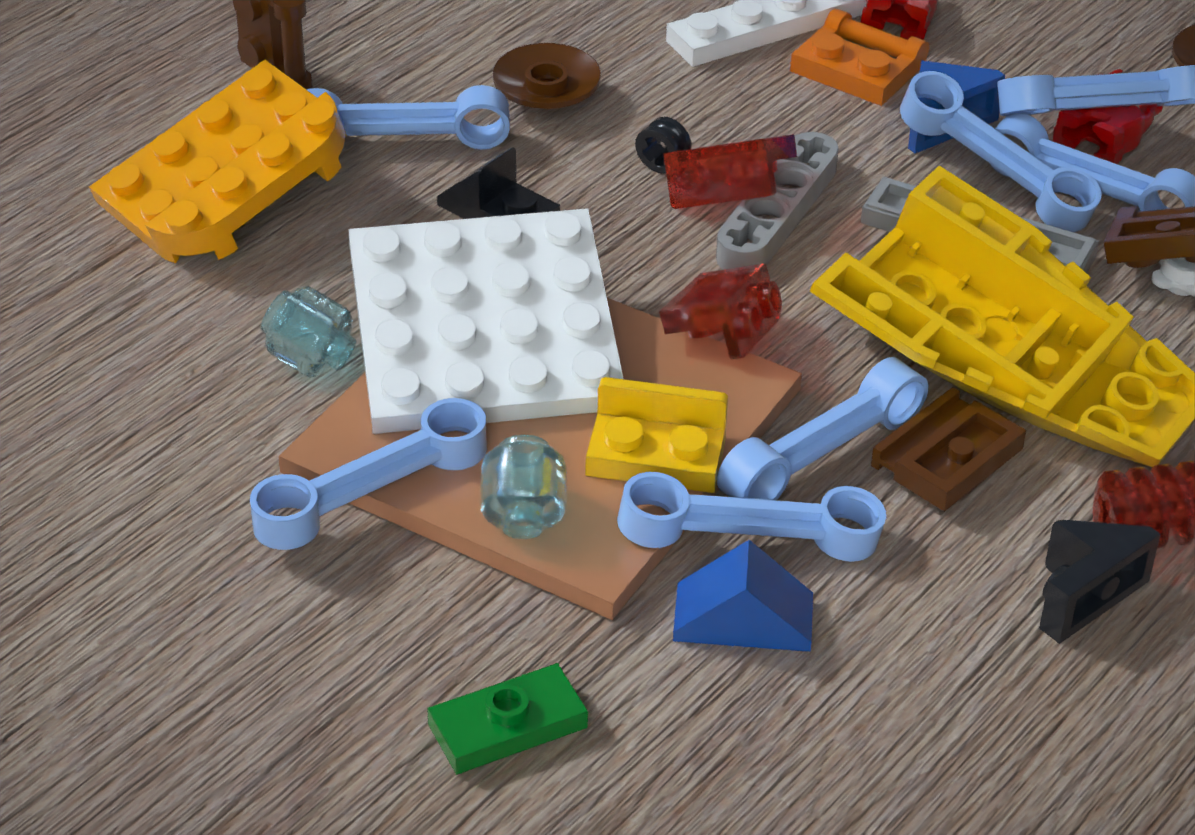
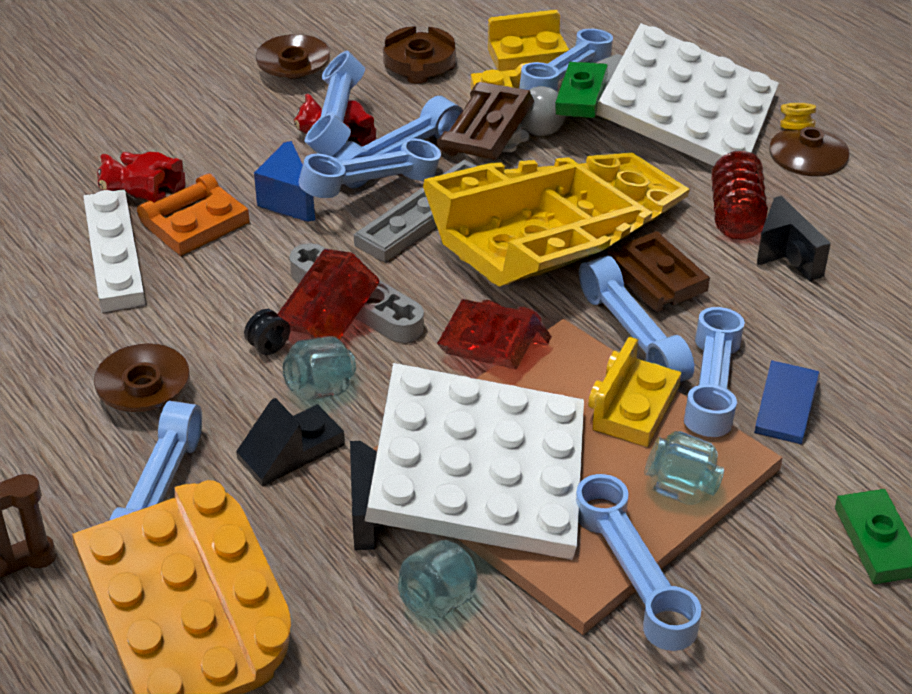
camera: 75 degrees left, 0 degrees up
(612, 189) = (318, 368): none -> clear light blue head

